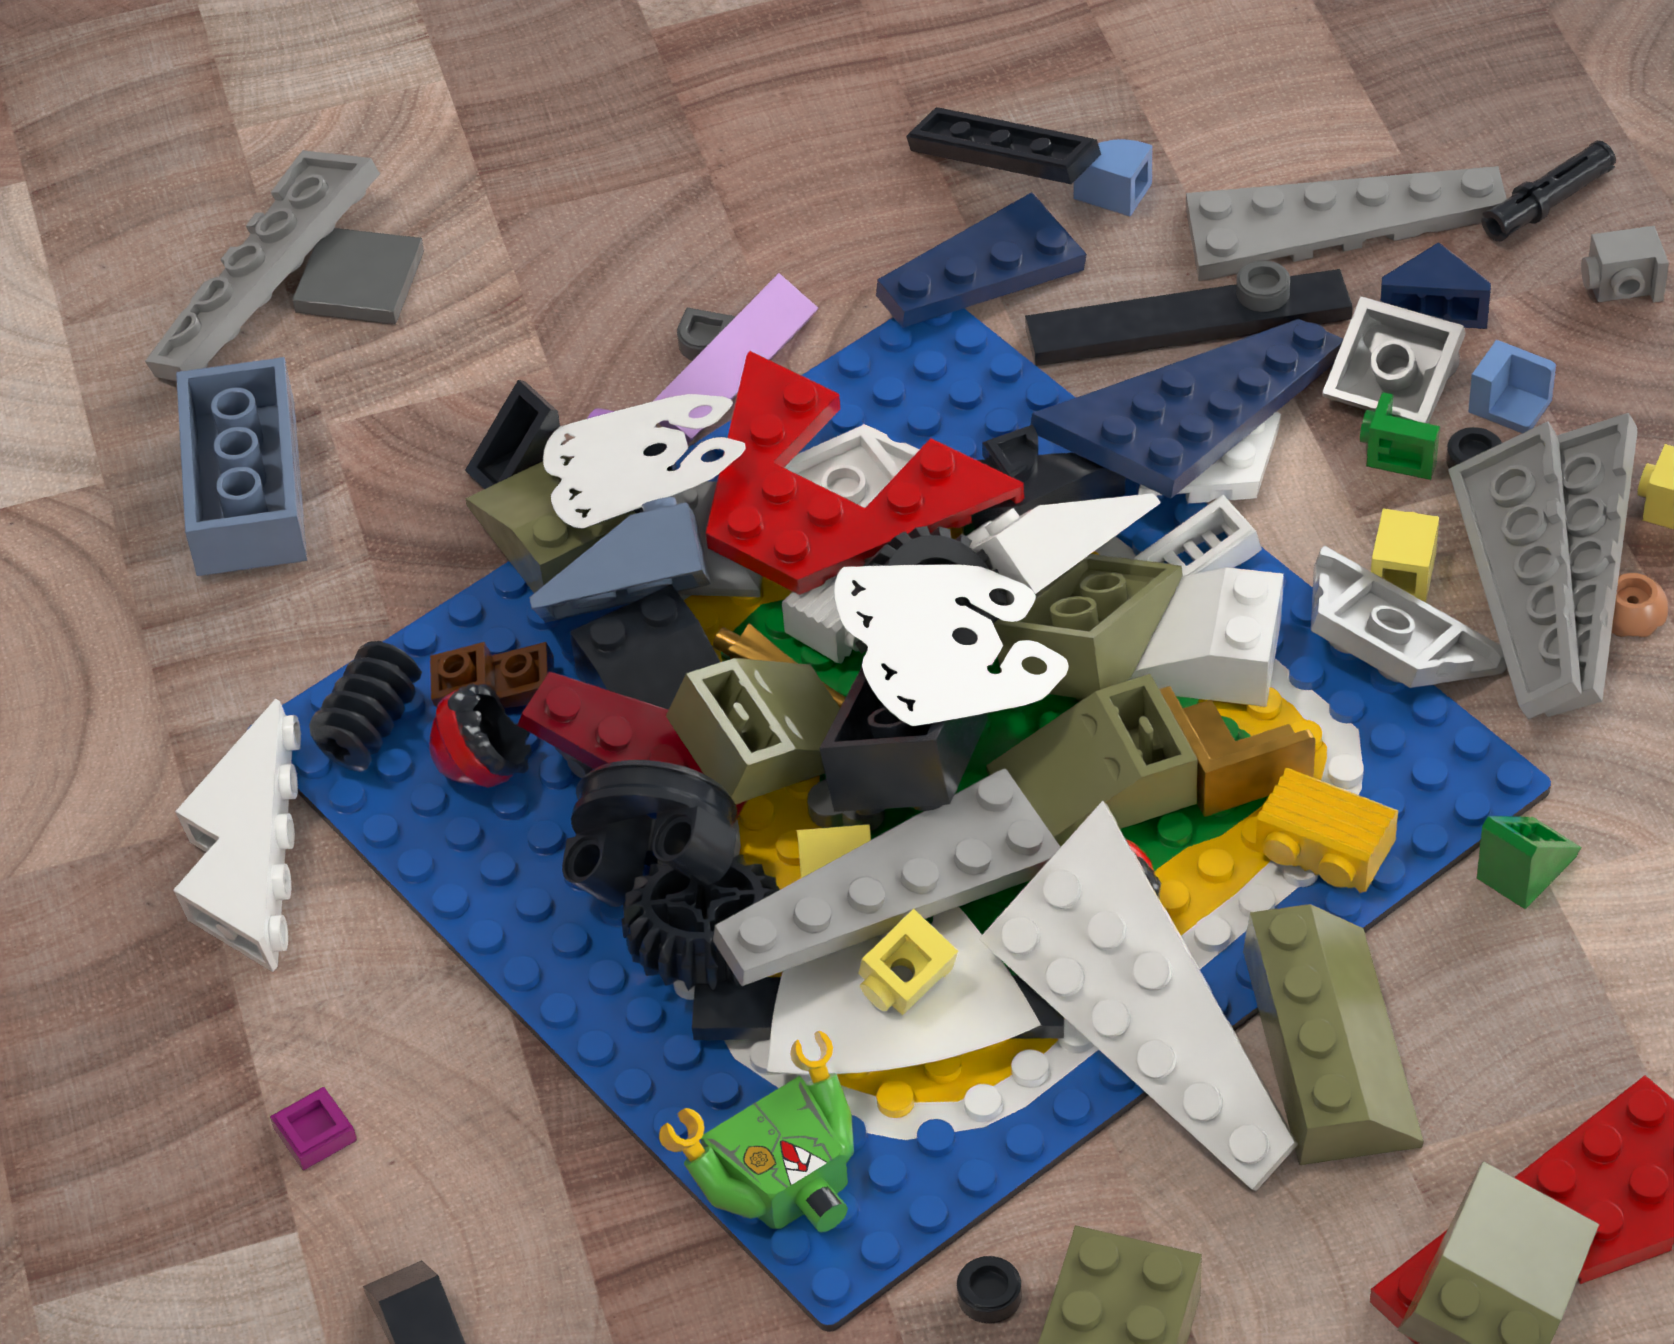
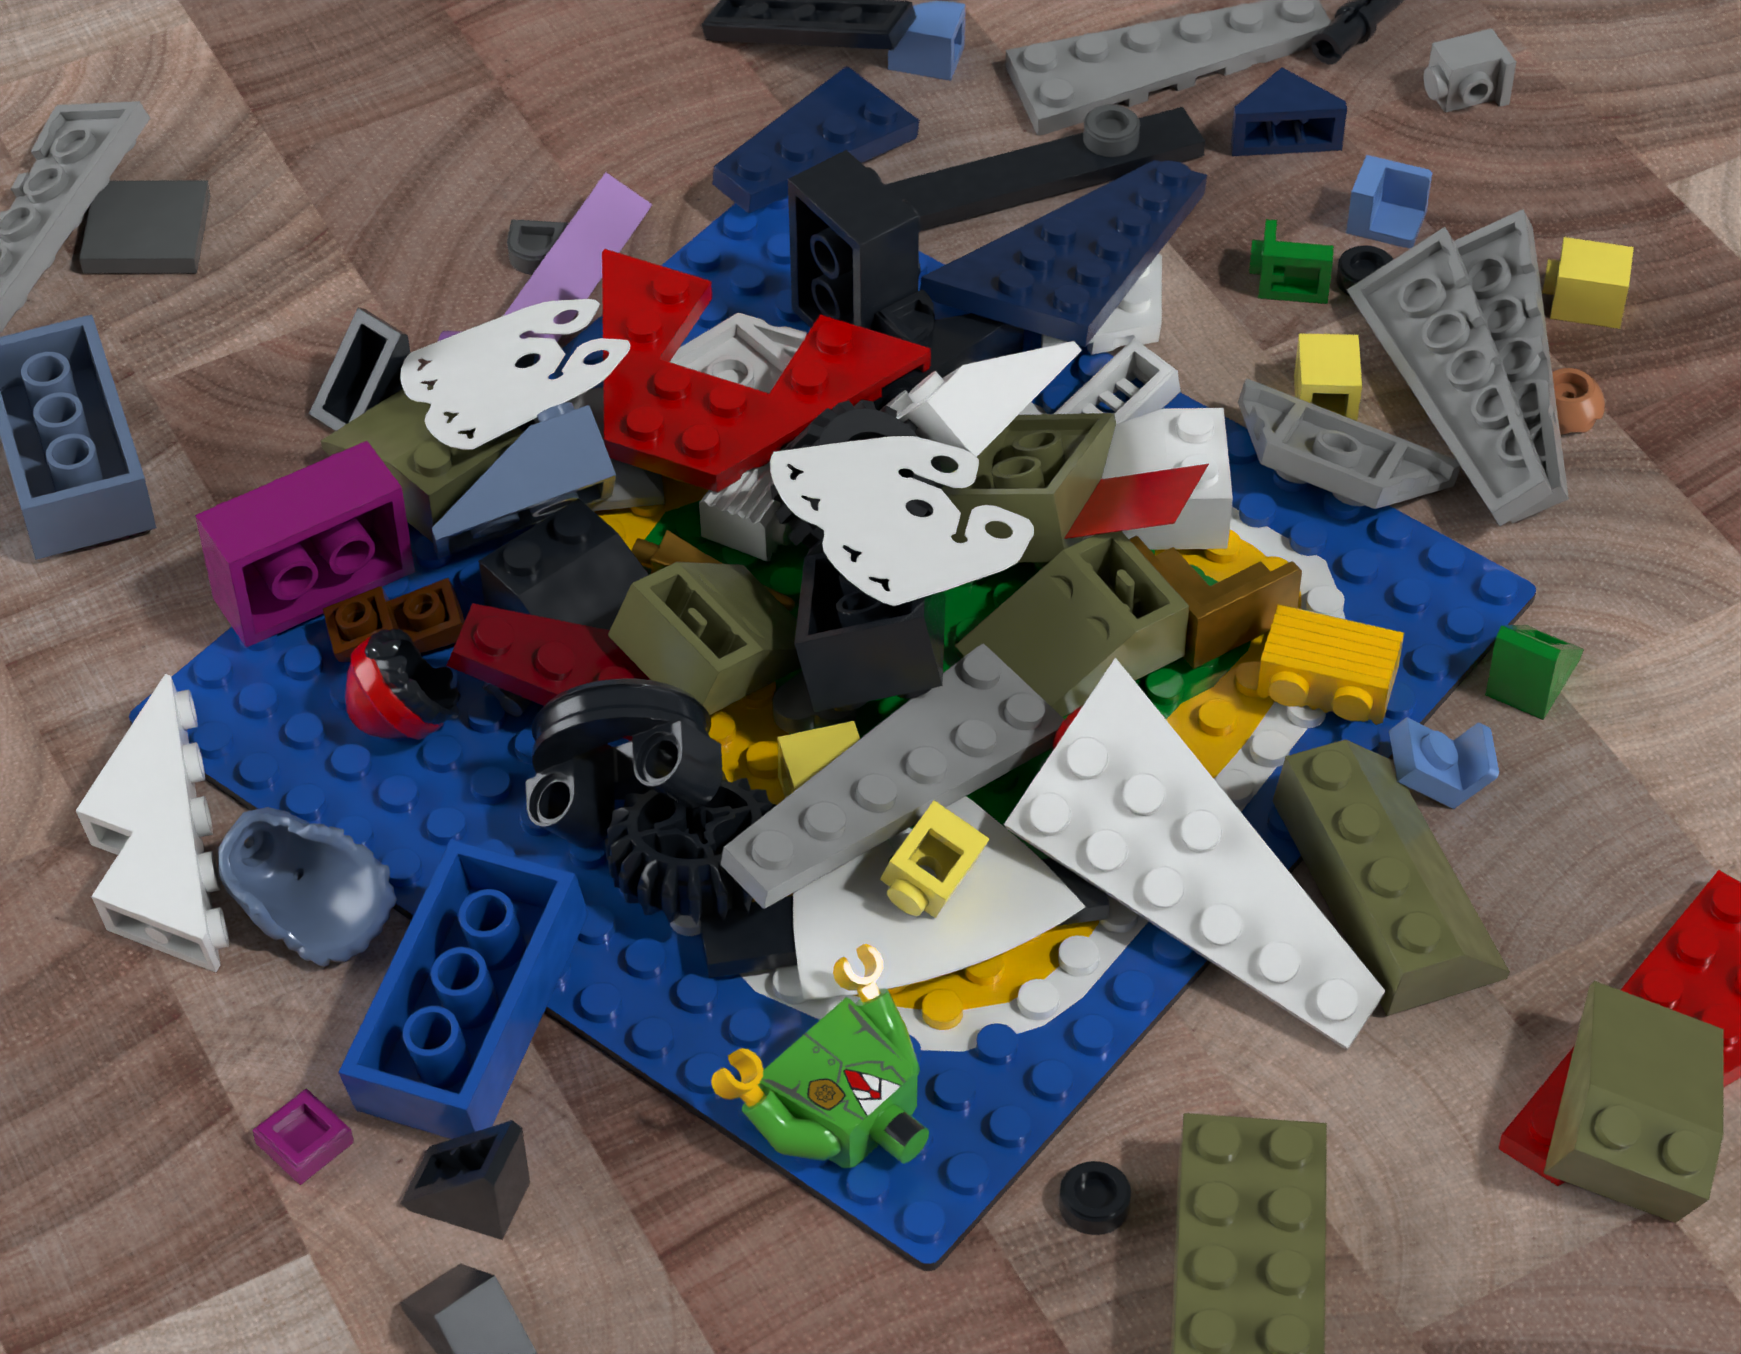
camera: 15 degrees left, 0 degrees up
(359, 905) = (306, 884): none -> sand blue piece
(365, 704) = (264, 669): black piece -> none
(427, 589) = (306, 542): none -> magenta brick
(448, 1190) = (473, 1180): none -> black slope
(472, 1022) = (464, 992): none -> blue brick
(970, 373) = (849, 243): none -> black brick
(1175, 654) = (1137, 501): none -> red sticker
(1397, 355) = (1264, 179): light grey slope -> none
(1408, 938) = (1442, 766): none -> medium blue bracket

